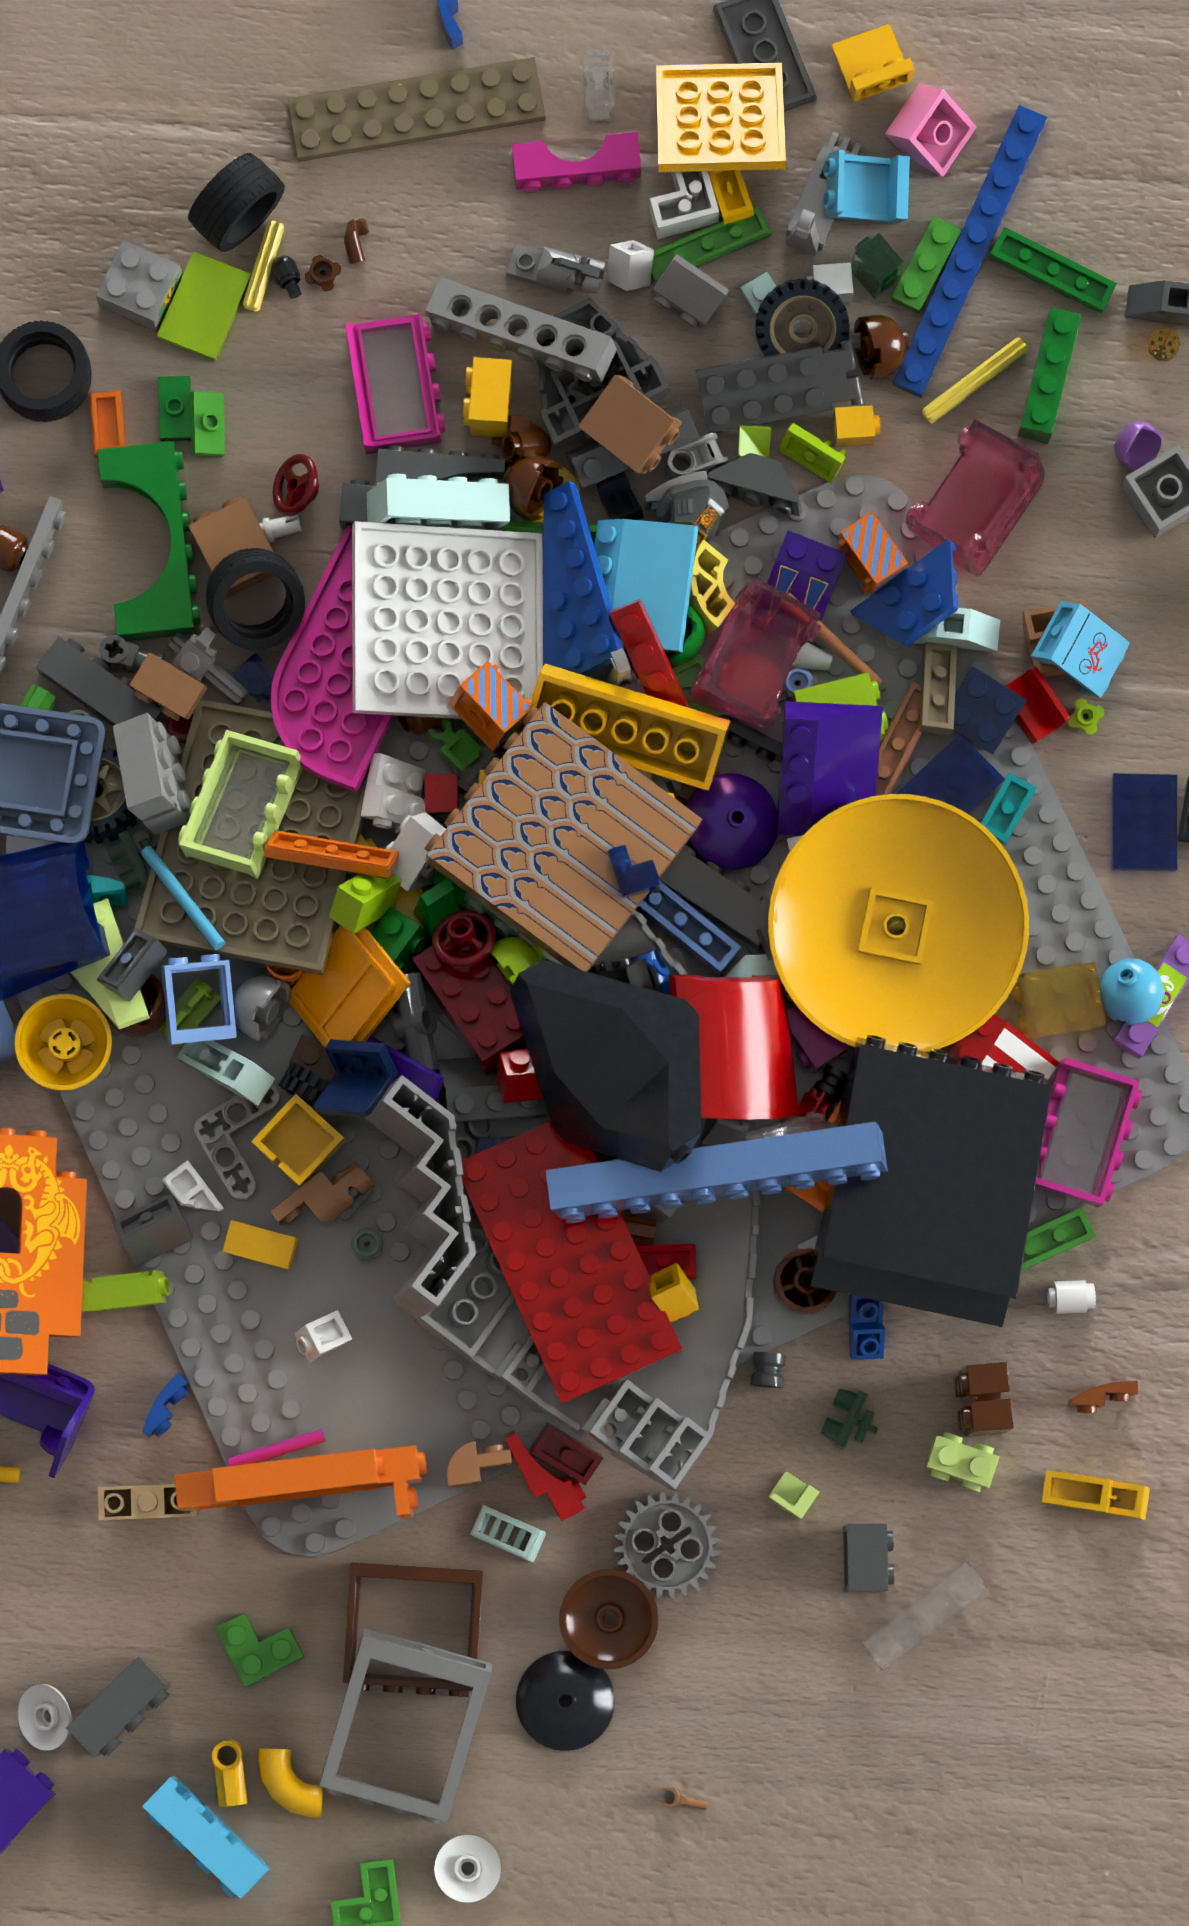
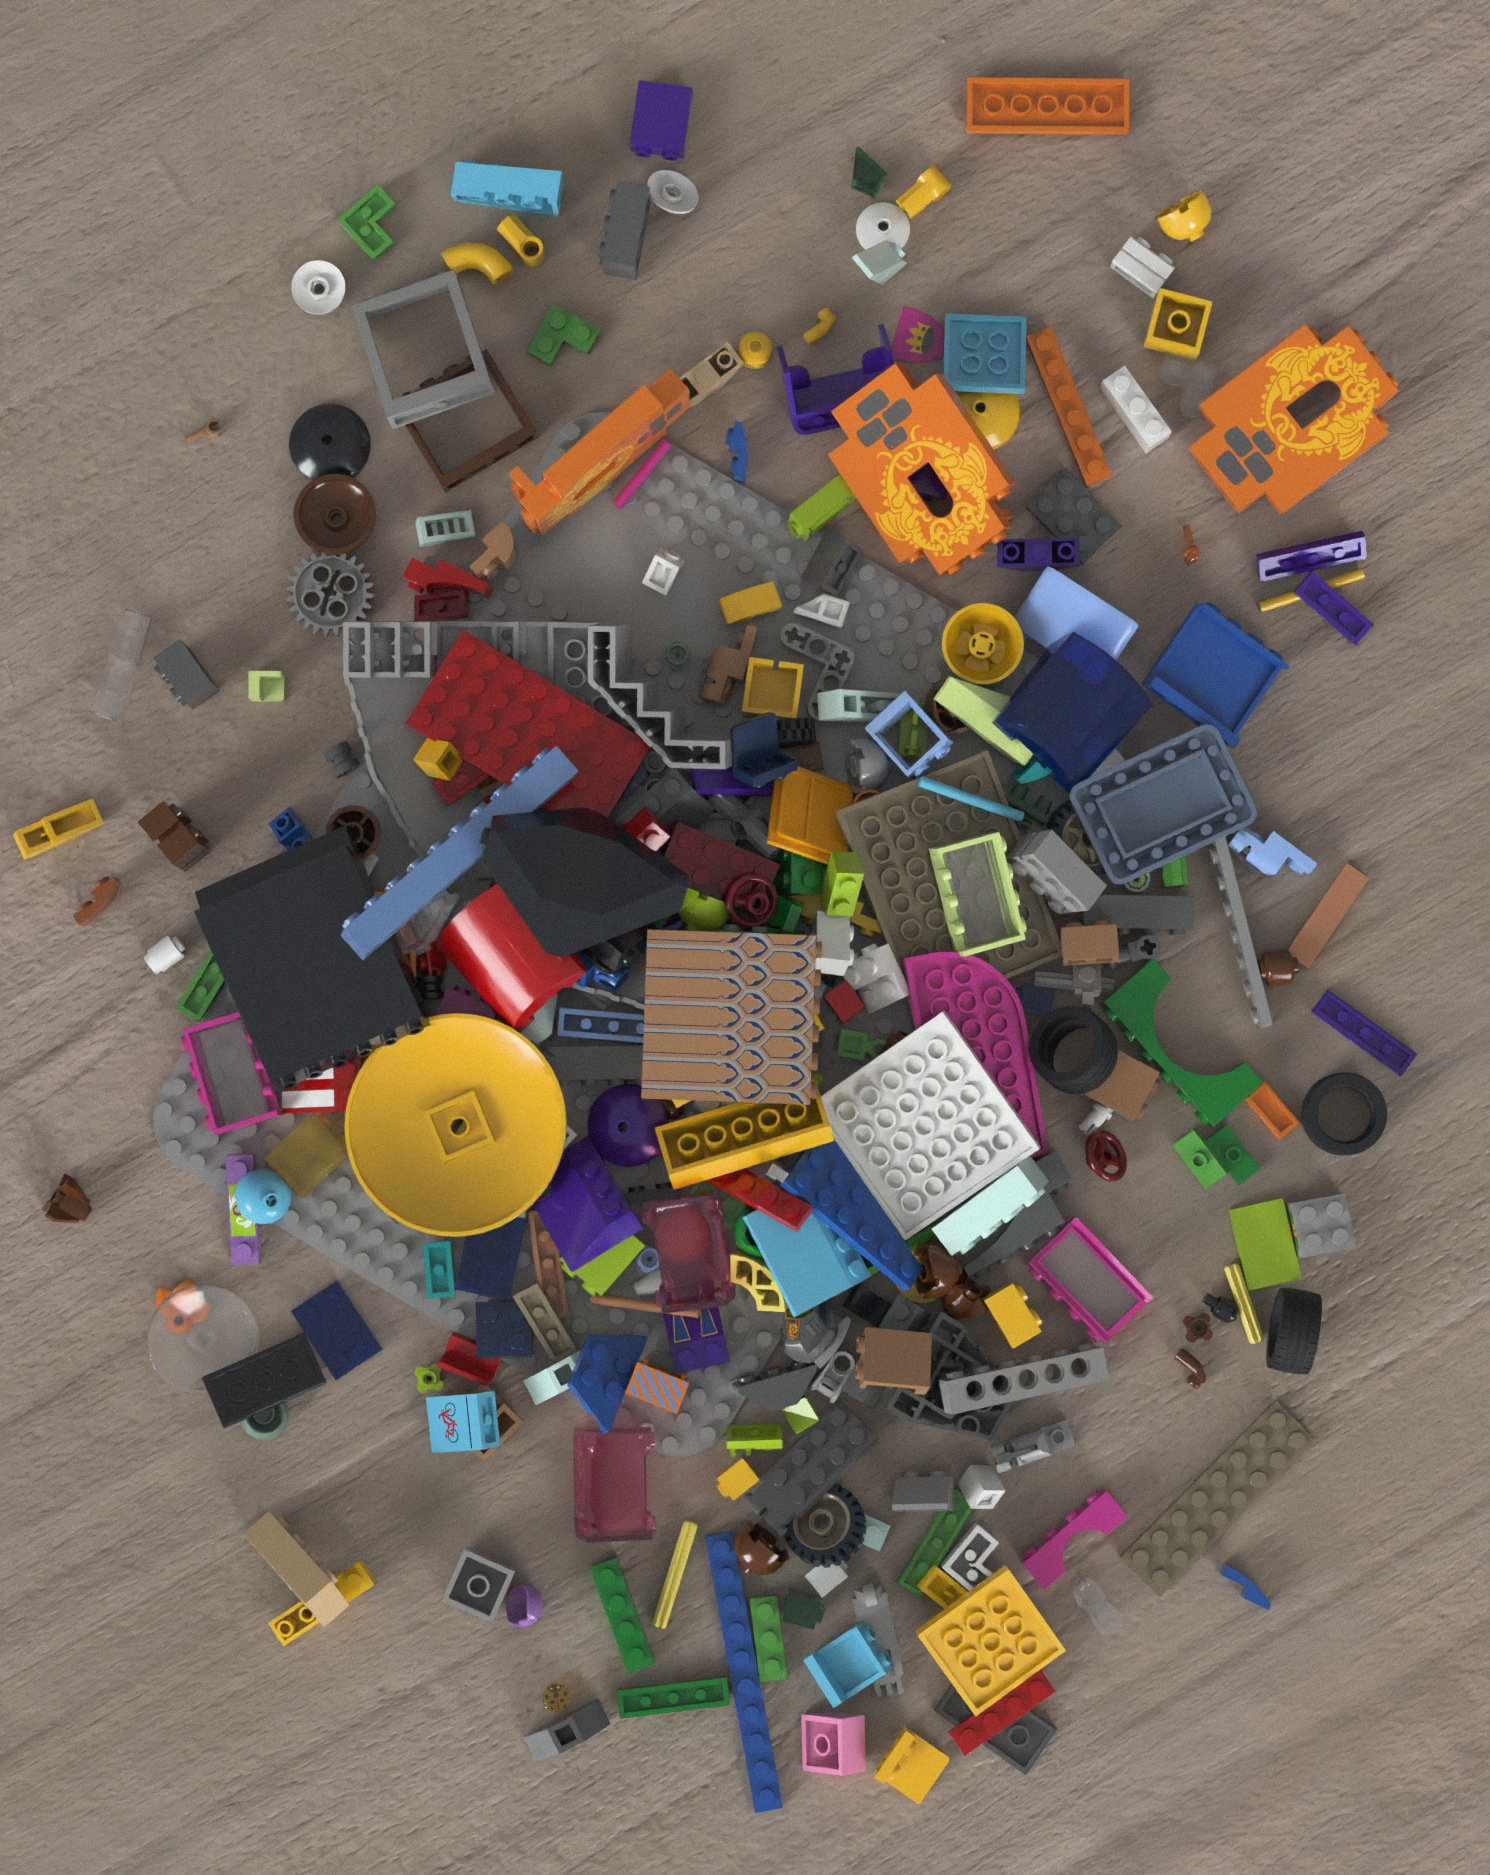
camera: 150 degrees right, 5 degrees up
(76, 1496) = (755, 350): none -> yellow head
(132, 965) = (971, 726): dark grey slope -> none
(331, 854) = (887, 898): orange tile -> none
(490, 705) = (849, 1080): orange container -> none
(633, 878) = (658, 1019): clear blue piece -> none
(791, 51) = (1016, 1703): none -> red plate
(840, 1432) = (266, 775): clear green hips -> none
(967, 1464) = (169, 785): yellowish green brick -> none

